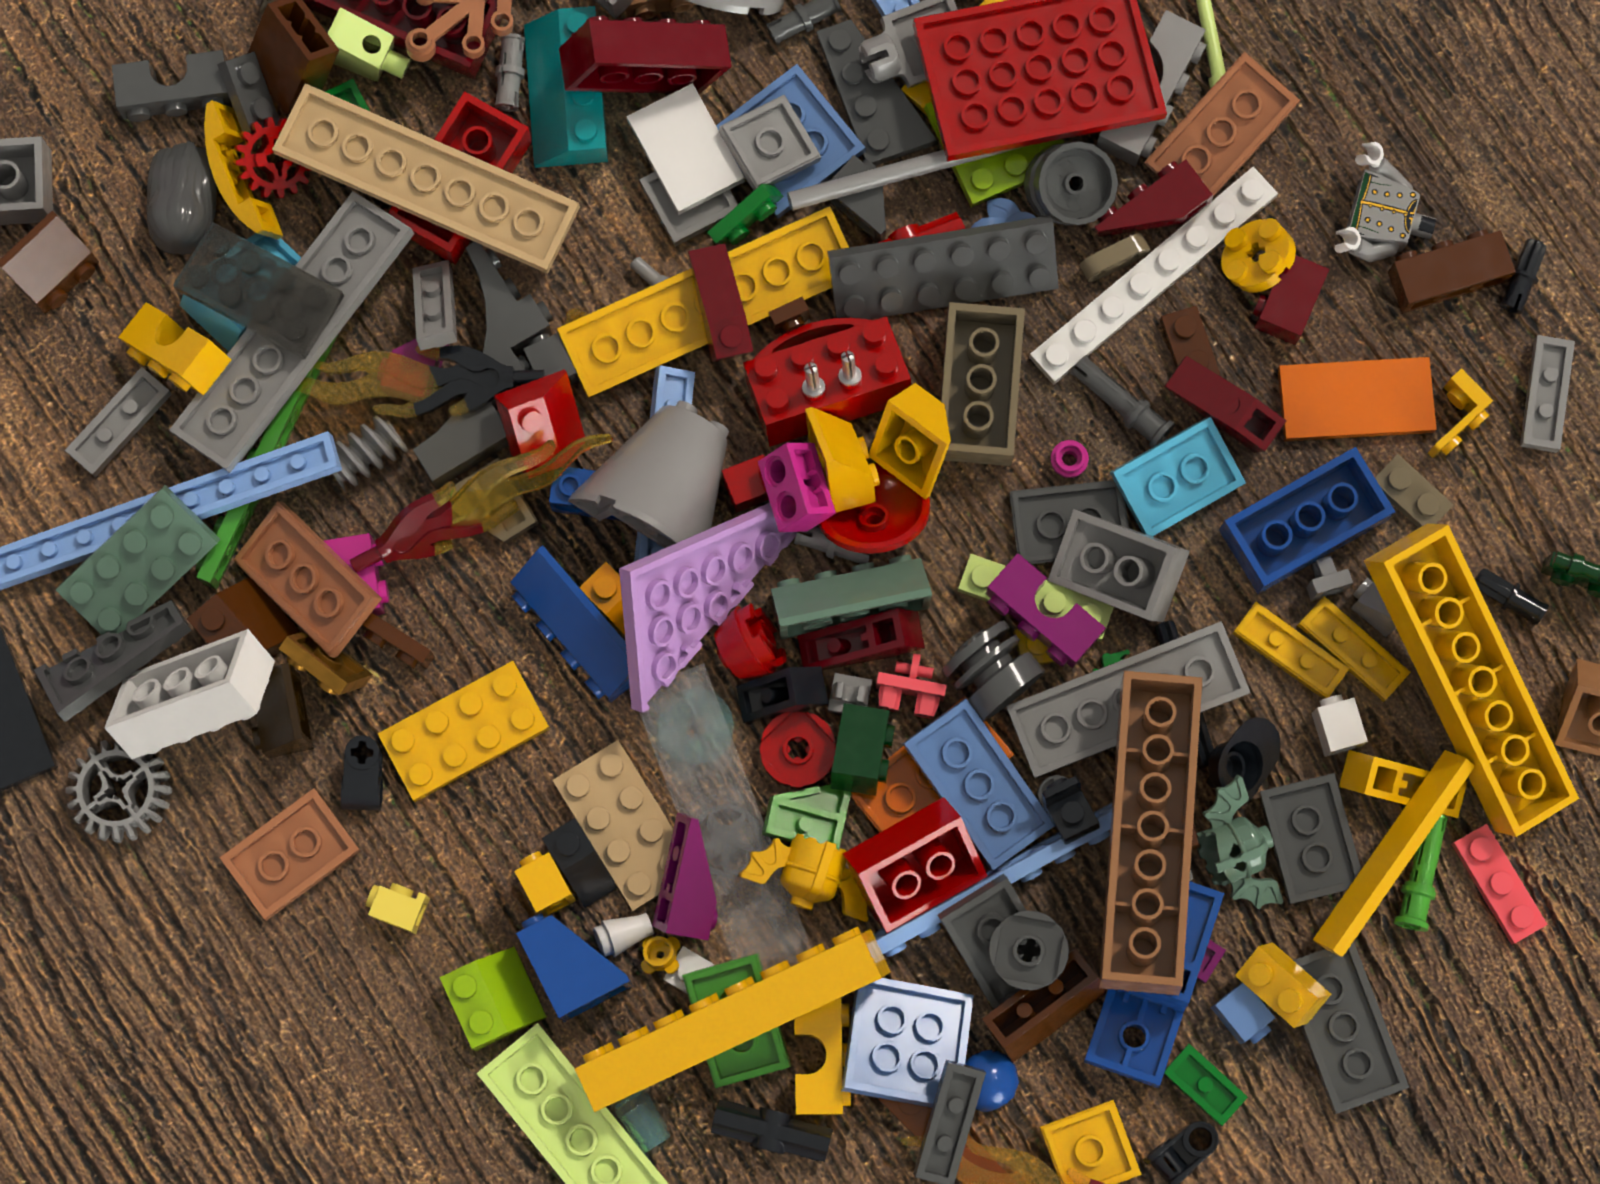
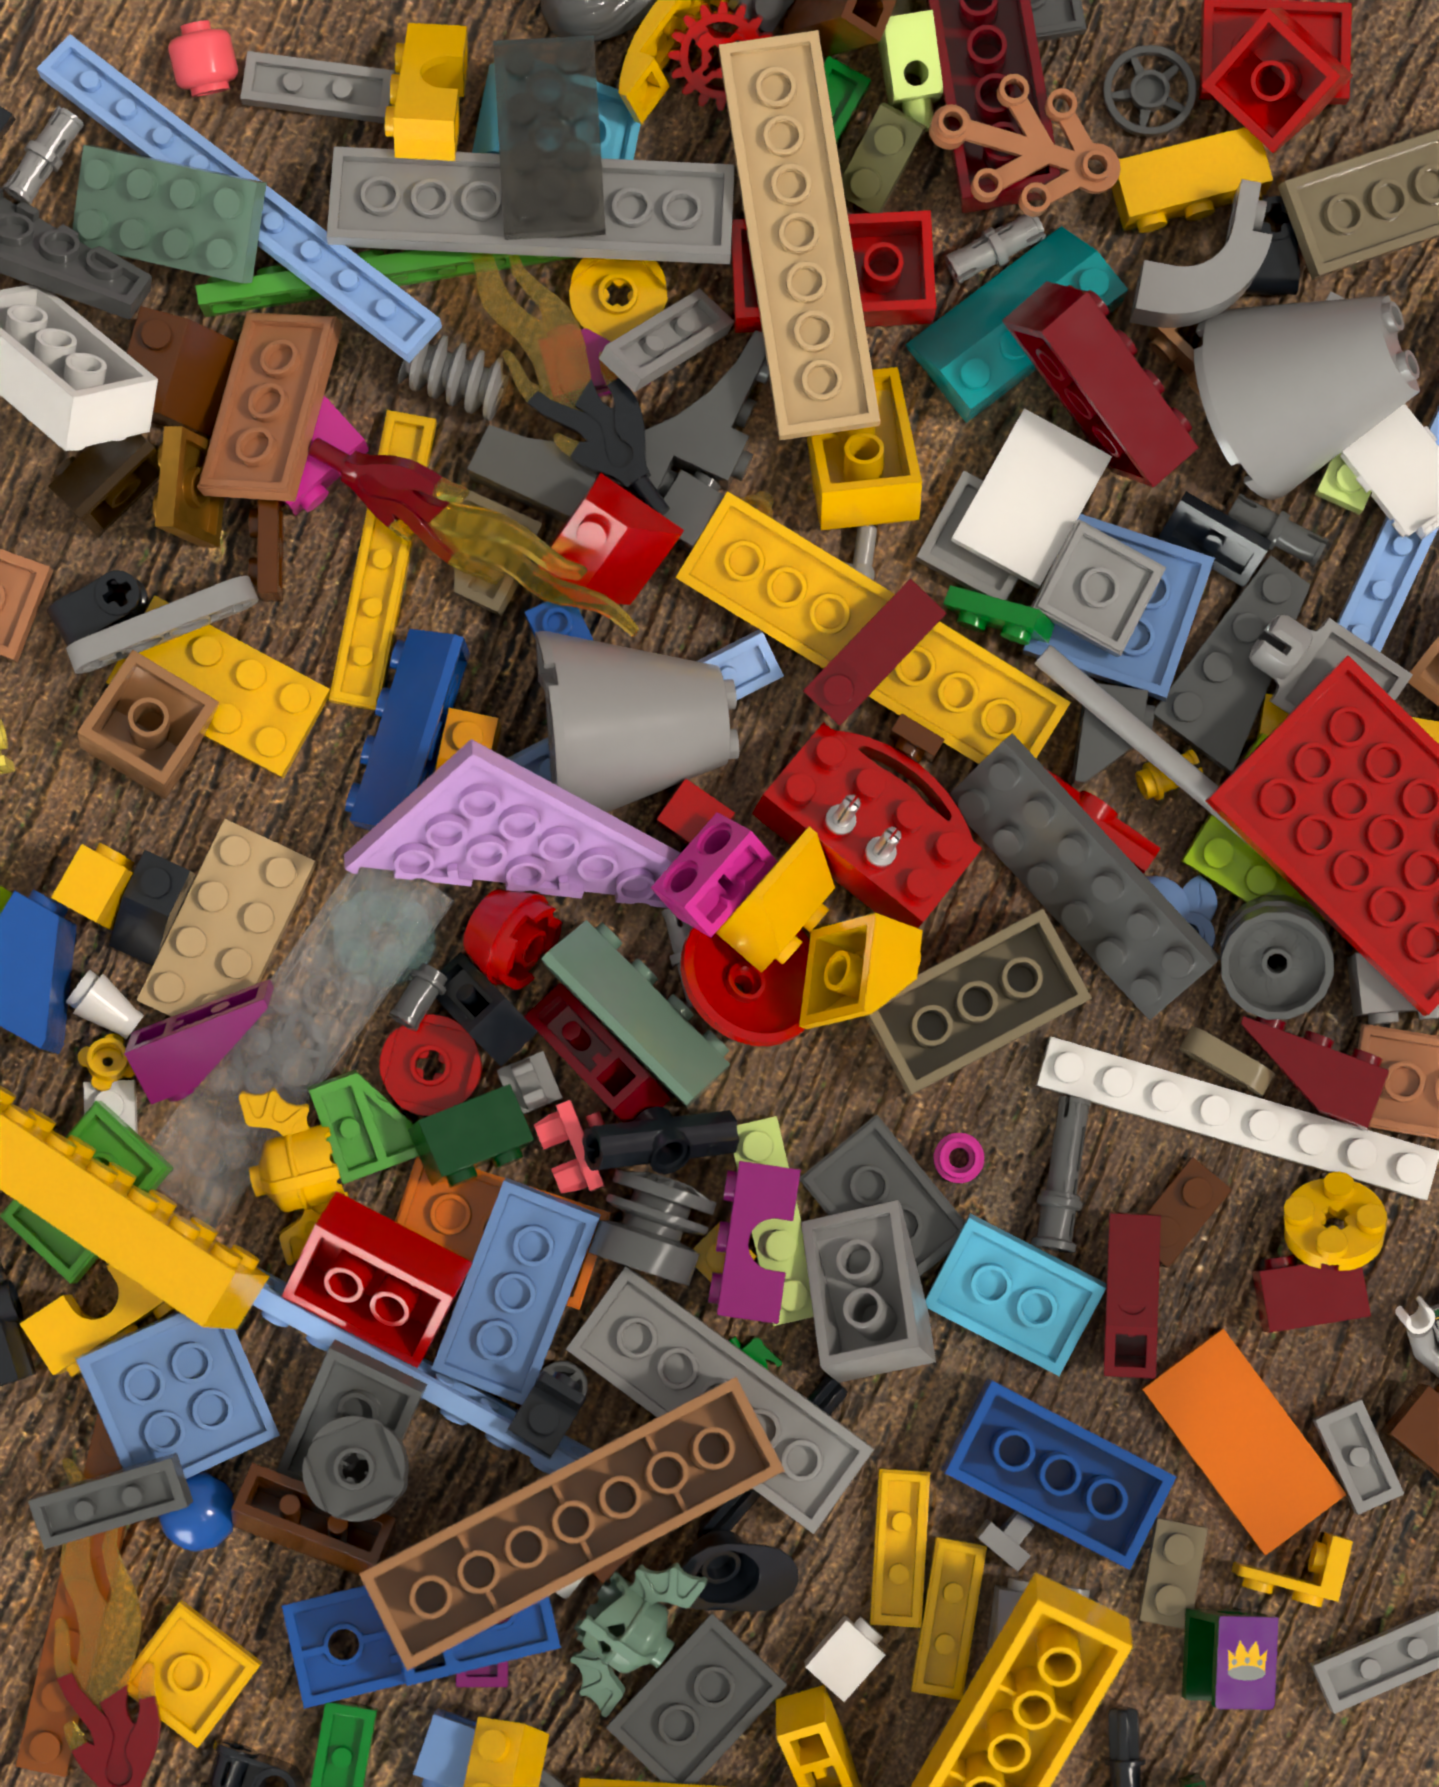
camera: 55 degrees right, 5 degrees up
(41, 624) = (43, 155): none -> light grey pin
(49, 482) = (203, 59): none -> coral head
(396, 304) = (589, 294): none -> yellow plate
(402, 736) = (162, 624): none -> light grey beam
(407, 100) = (881, 158): none -> olive plate
(460, 787) = (148, 724): none -> medium nougat slope
(463, 587) = (378, 580): none -> yellow tile
(601, 238) = (868, 471): none -> yellow slope
(750, 726) = (418, 996): none -> dark grey pin
(781, 54) = (1215, 534): none -> black plate
(911, 189) = (1155, 783): none -> yellow pin
(941, 631) = (660, 1140): none -> black piece
(1410, 335) = (1358, 1456): none -> light grey plate
(1487, 488) = (1230, 1658): none -> piece

